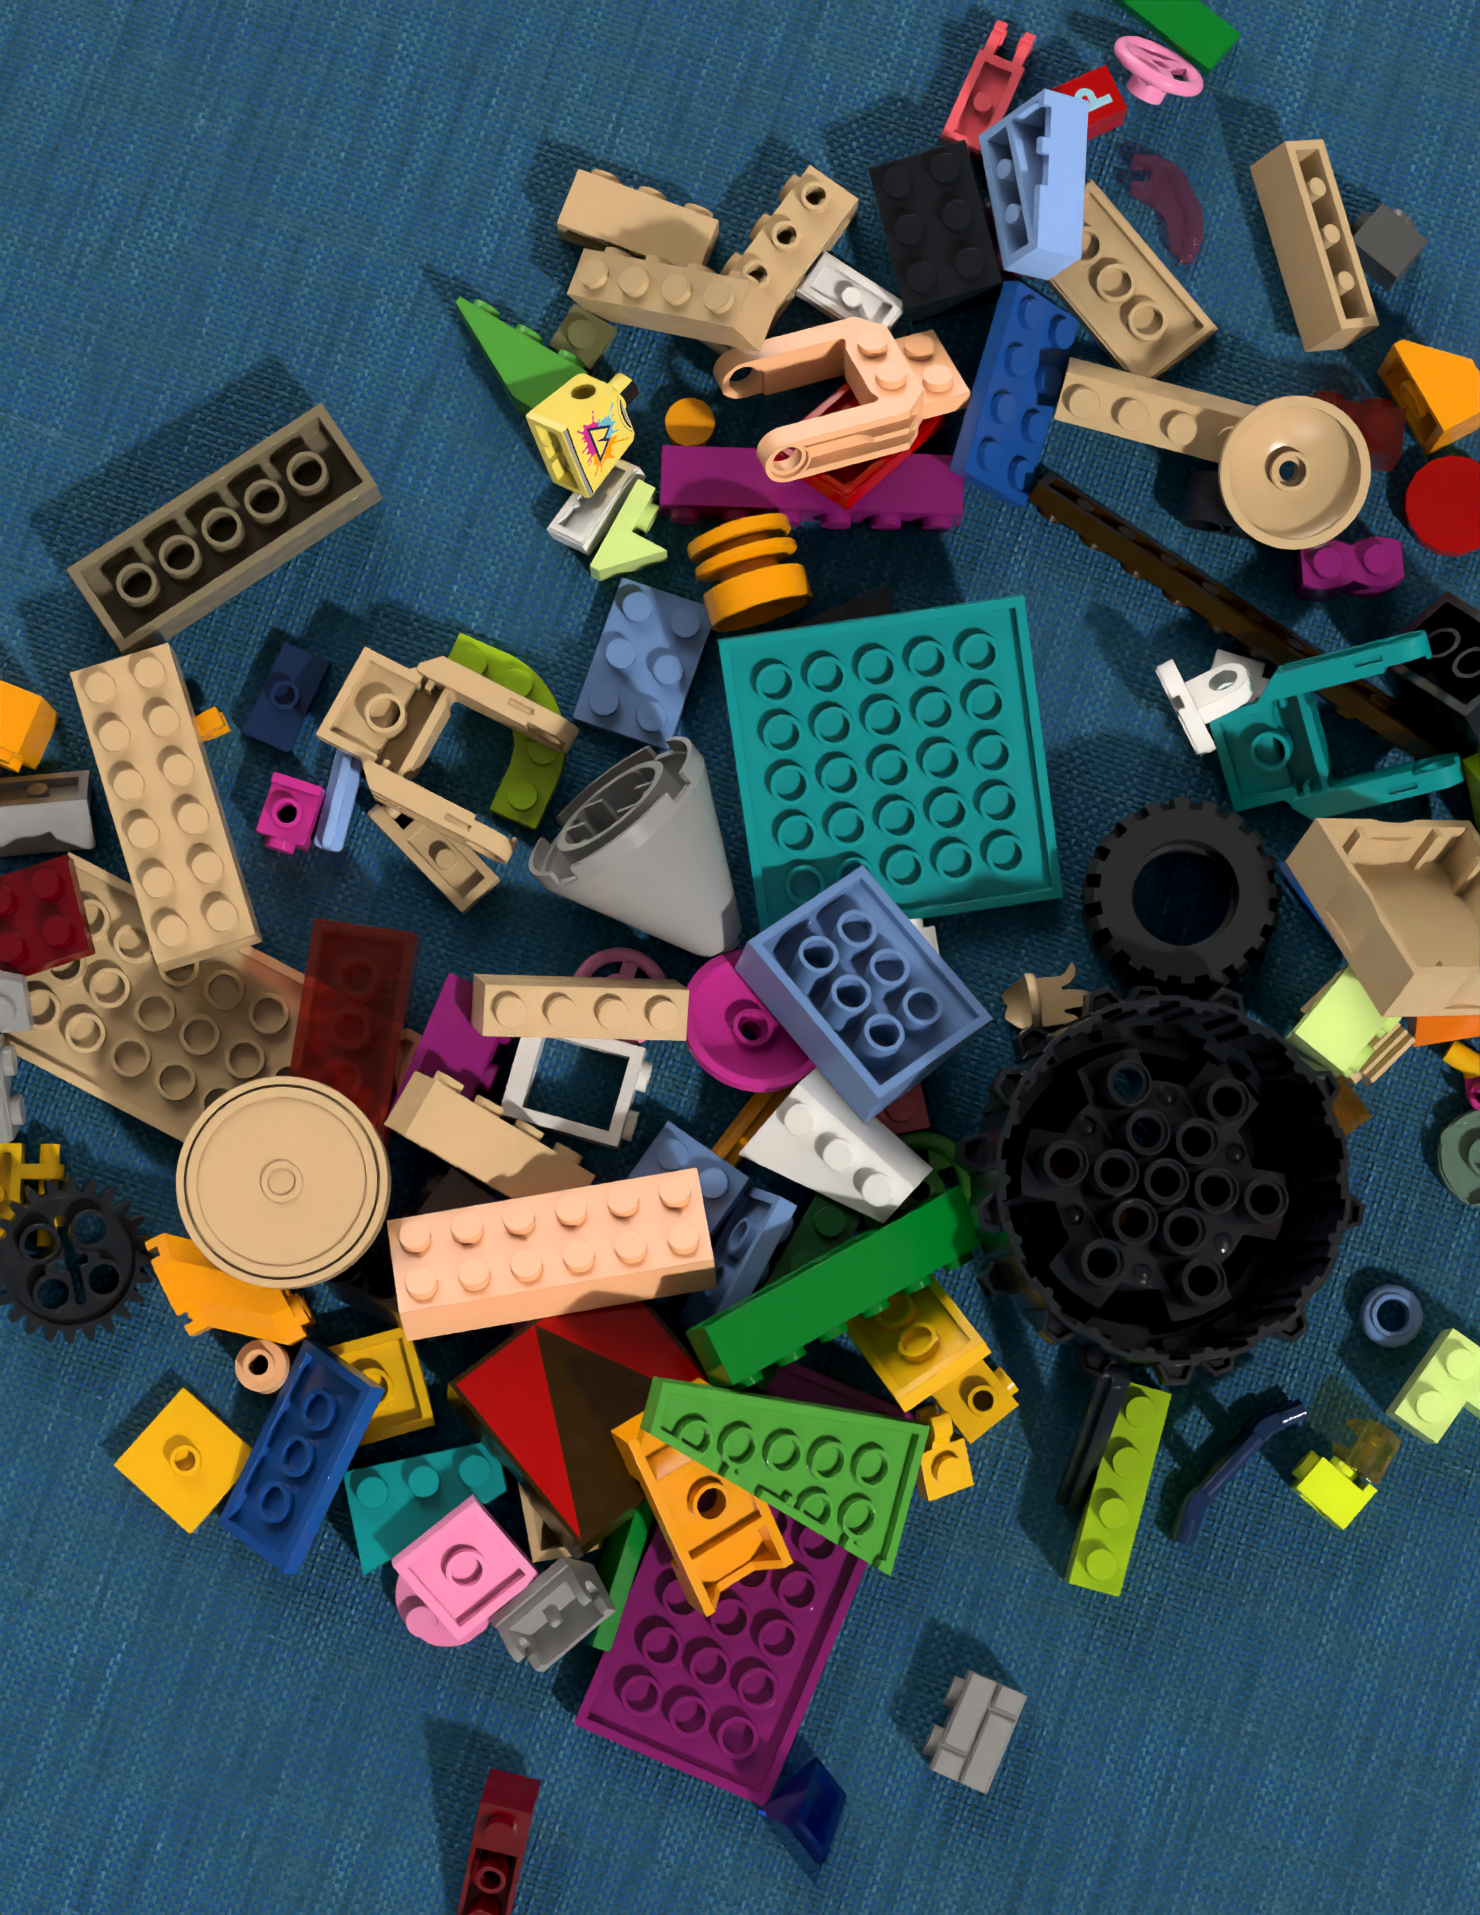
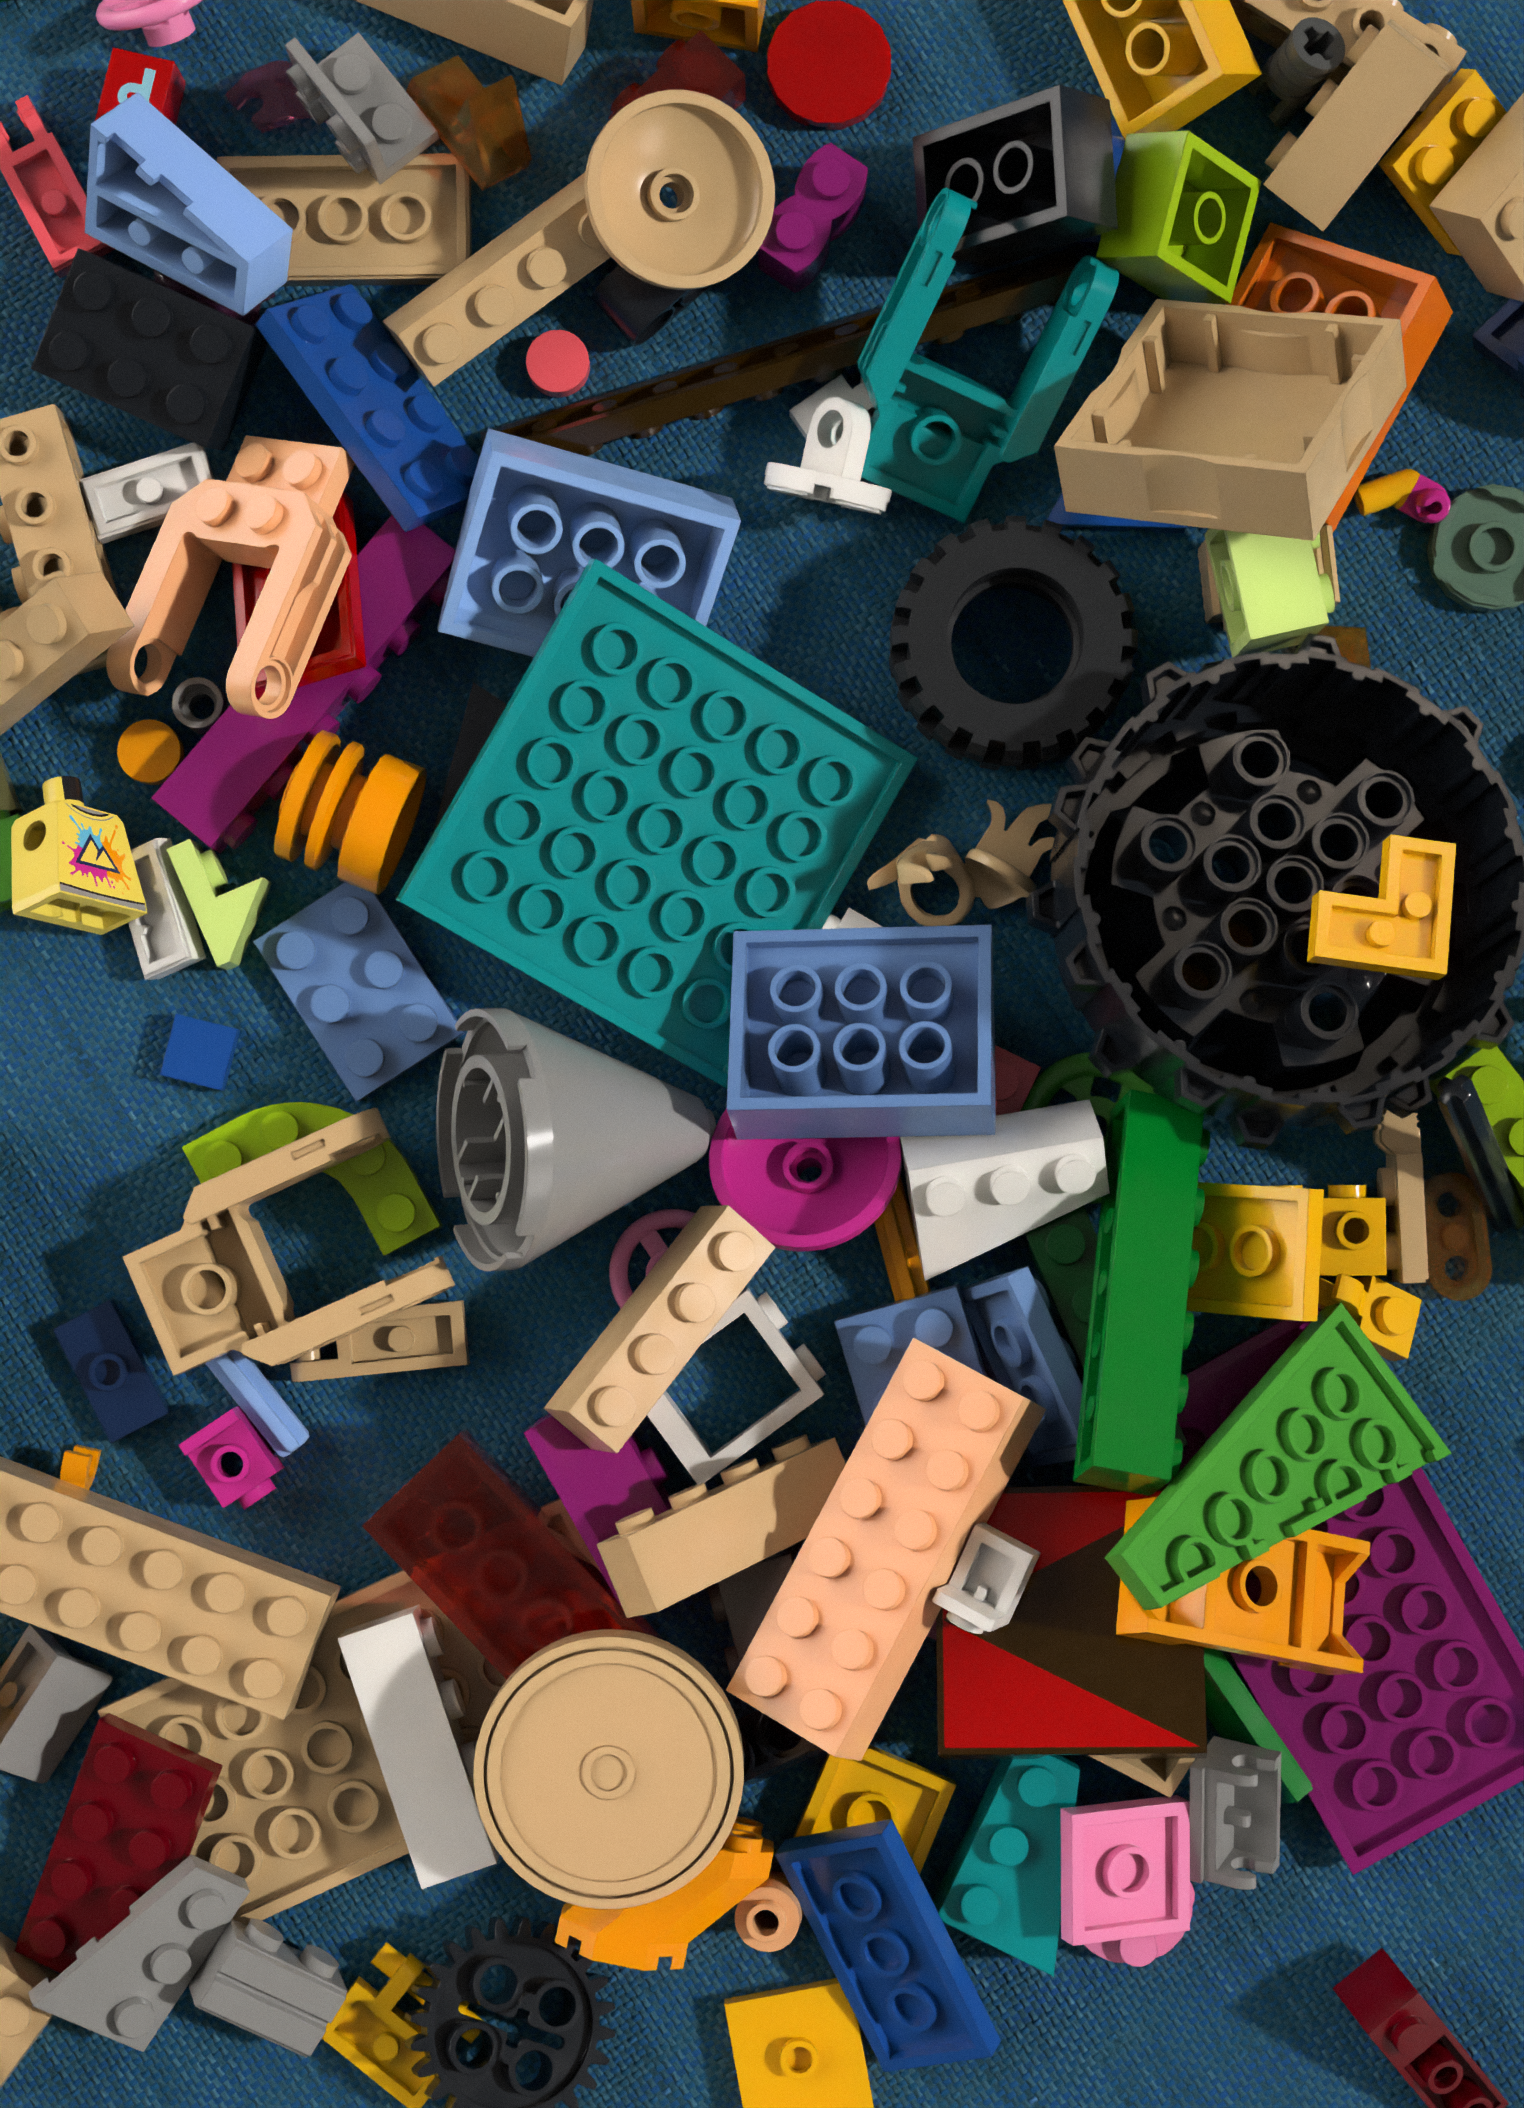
camera: 50 degrees left, 5 degrees up
(204, 1061) = (419, 1742): none -> white brick
(527, 598) = (200, 1052): none -> blue tile
(581, 1329) = (987, 1580): none -> white bracket
(740, 419) = (186, 697): none -> light grey hose
(989, 944) = (913, 867): none -> tan piece
(1029, 1473) = (1458, 1235): none -> clear orange plate
(1032, 548) = (547, 512): none -> light blue slope
(1032, 1415) = (1404, 1193): none -> tan hinge
(1131, 484) = (558, 363): none -> coral tile
(1189, 1263) = (1402, 928): none -> yellow plate
(1194, 245) = (364, 107): none -> light grey bracket
(1239, 316) = (474, 122): none -> clear orange slope

